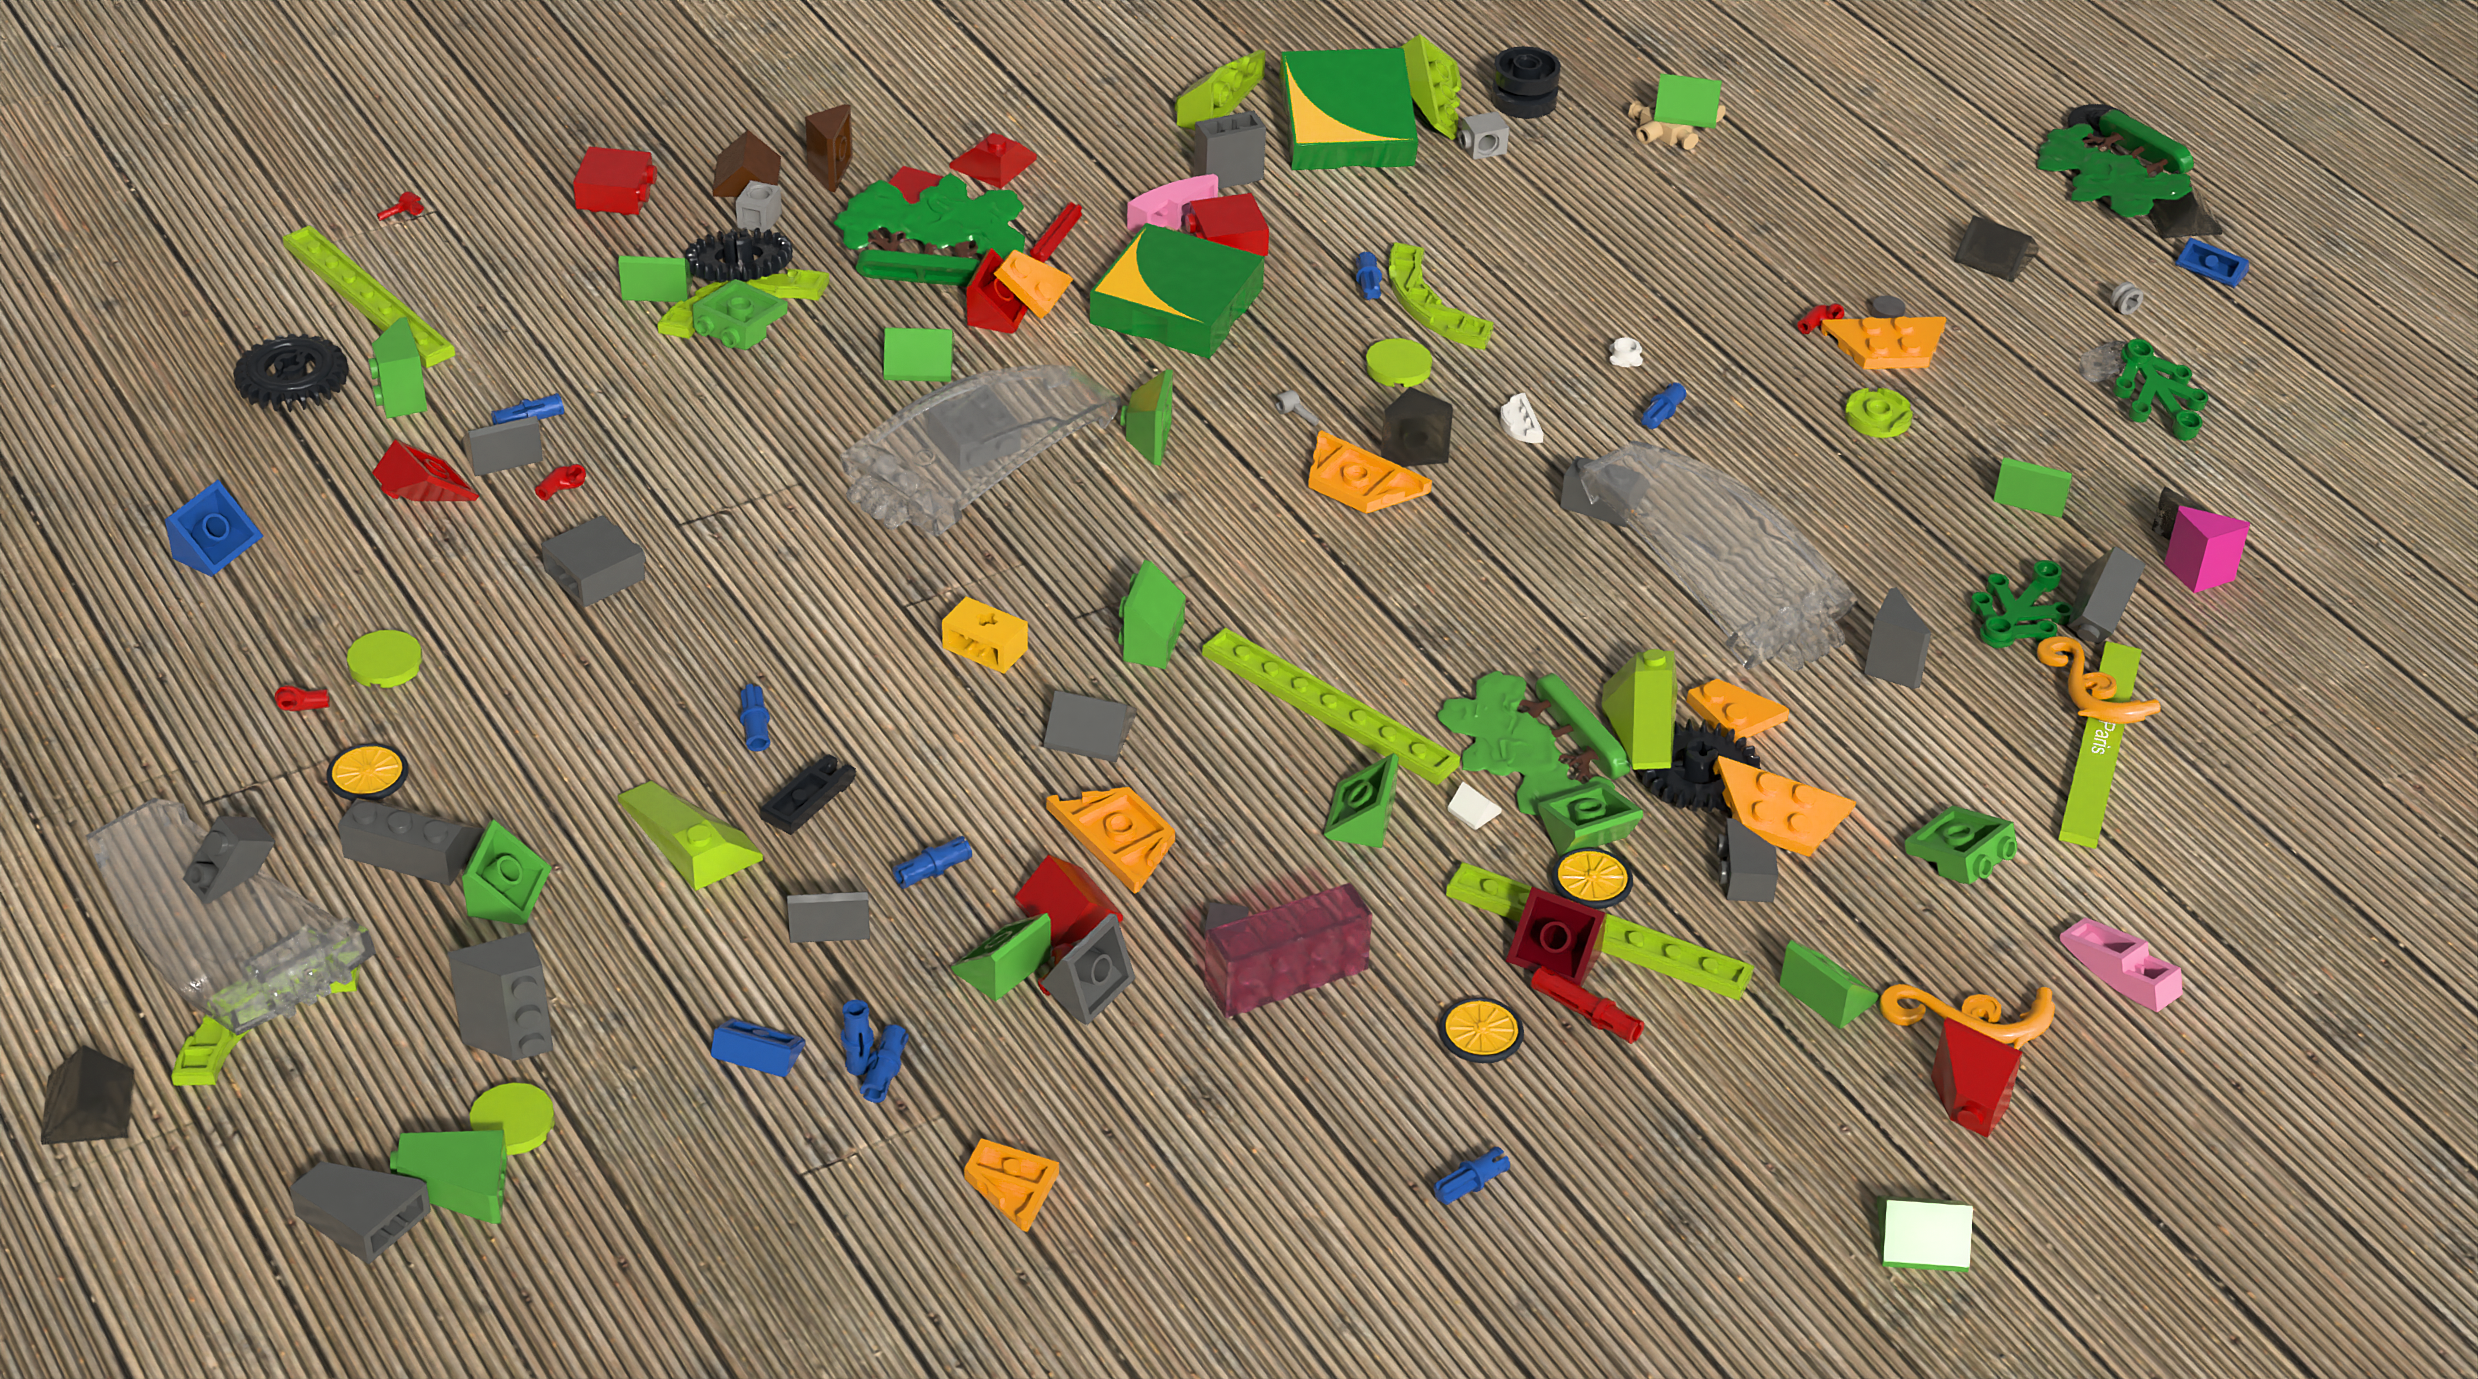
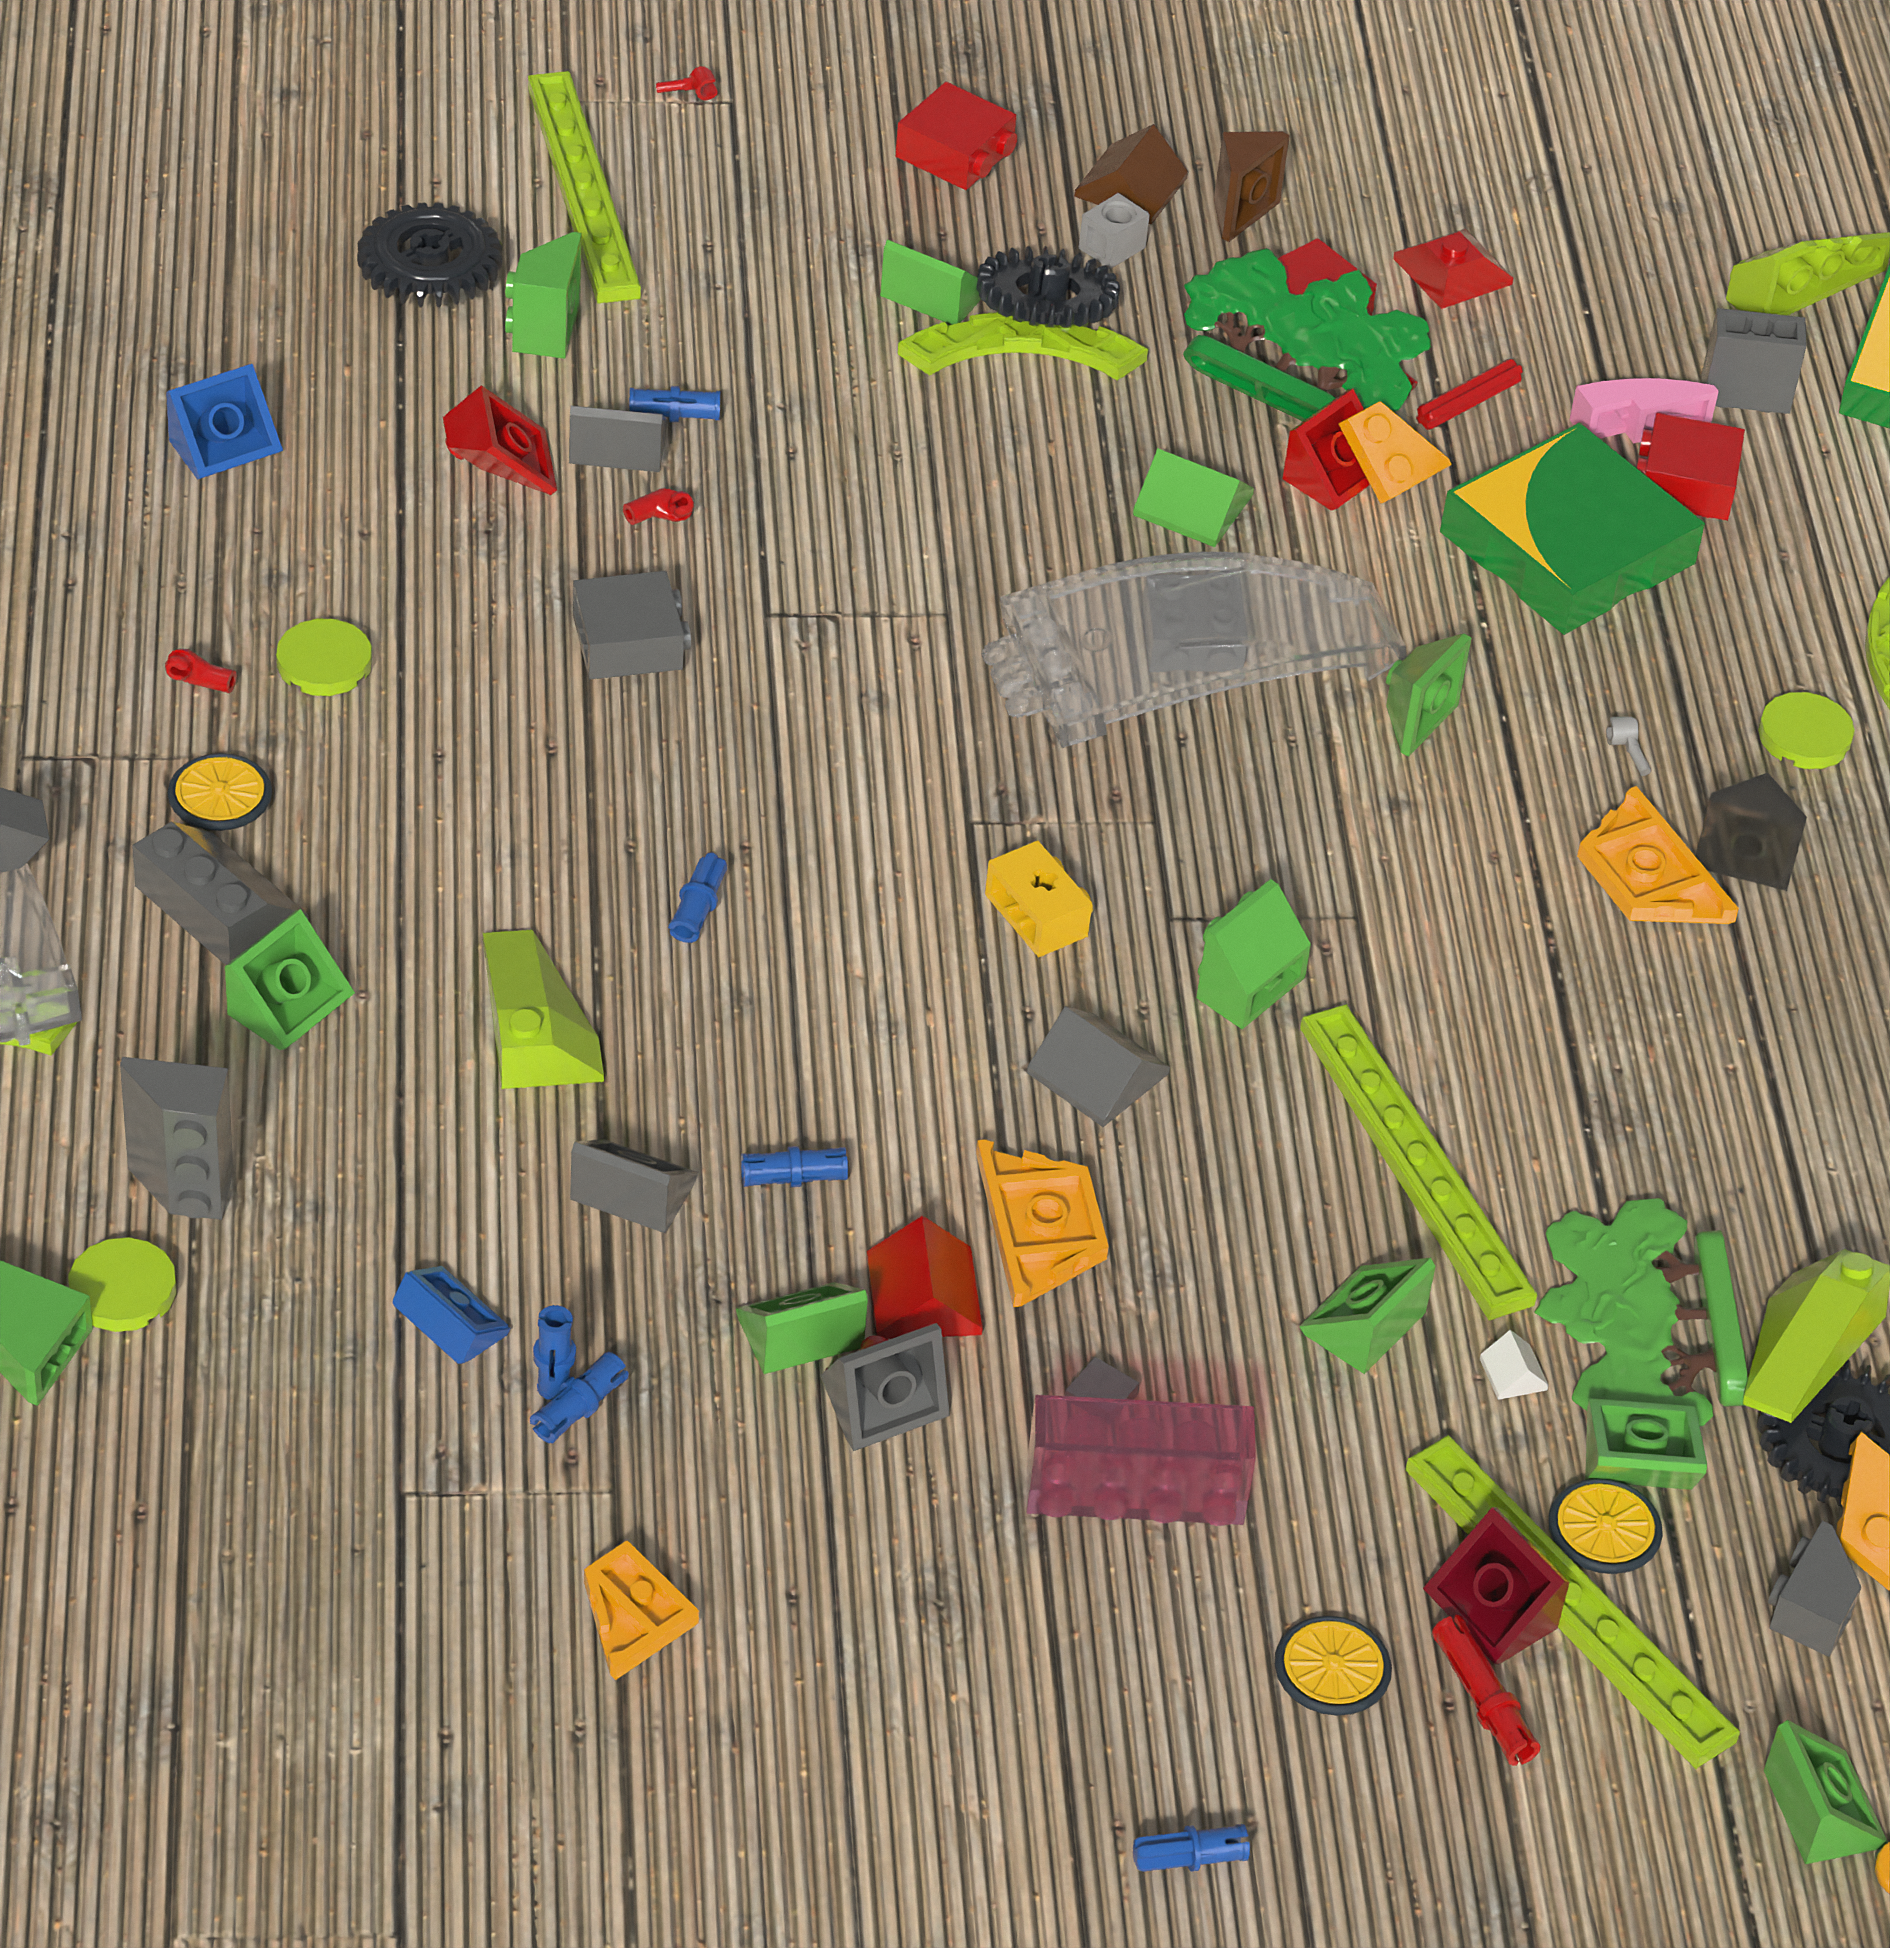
camera: 25 degrees right, 5 degrees up
(737, 314) = (997, 365): bright green plate -> none
(807, 794) = (701, 1020): black hinge -> none
(1368, 275) = (1841, 596): blue axle -> none

